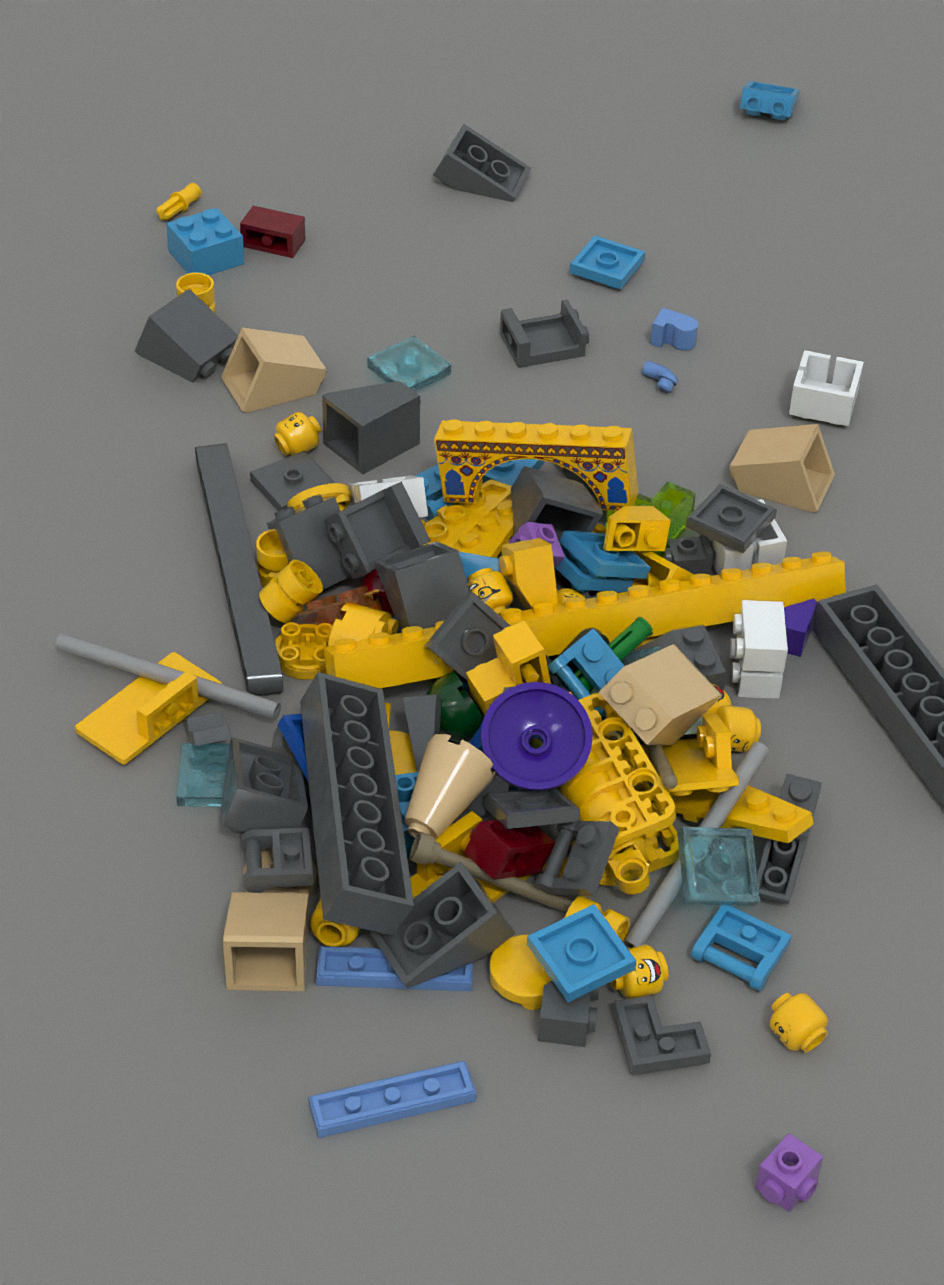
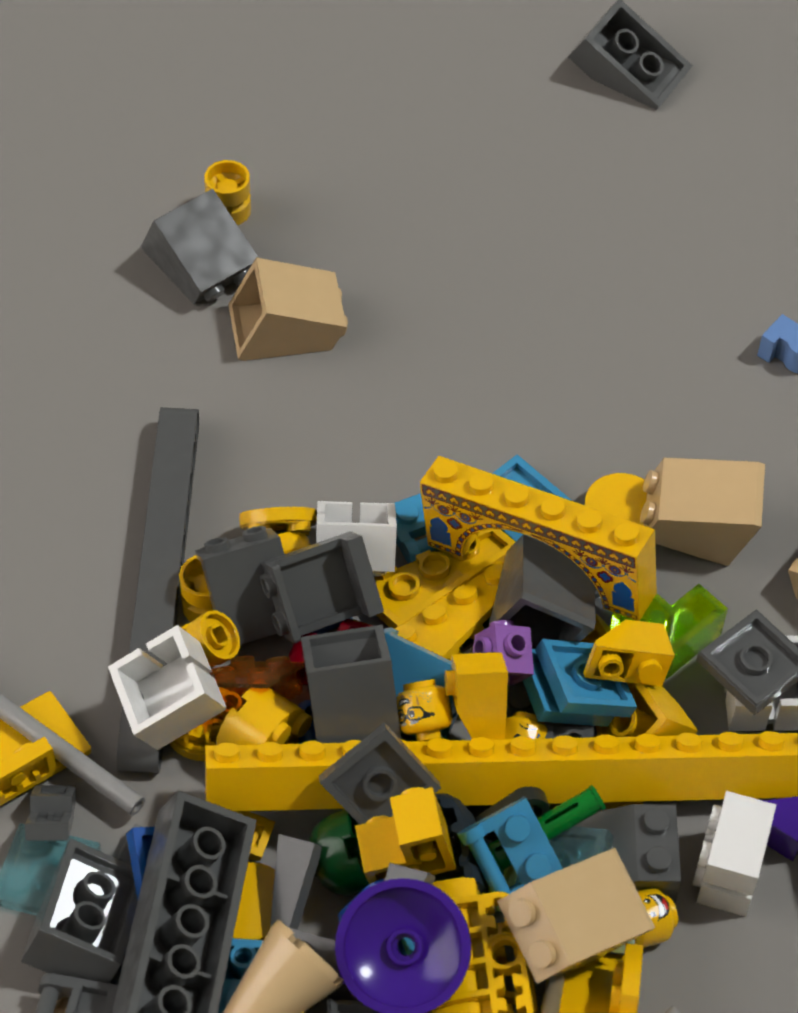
camera: 15 degrees right, 10 degrees up
(179, 201) = (255, 41): yellow axle -> none
(205, 242) = (265, 111): dark azure brick -> none
(273, 231) = (350, 107): dark red brick -> none
(287, 621) = (171, 698): none -> white piece
(288, 477) = (264, 475): dark grey plate -> none
(297, 434) = (286, 411): yellow head -> none
(371, 423) = (375, 418): dark grey slope -> none
(410, 363) = (451, 335): clear light blue plate -> none
(545, 337) = (627, 323): dark grey panel -> none
(607, 262) = (740, 226): dark azure plate -> none
(663, 432) = (704, 506): none -> tan slope
(666, 377) = (755, 406): medium blue arm -> none
(690, 553) = (696, 690): dark grey brick -> none
(743, 726) = (671, 957): yellow head -> none

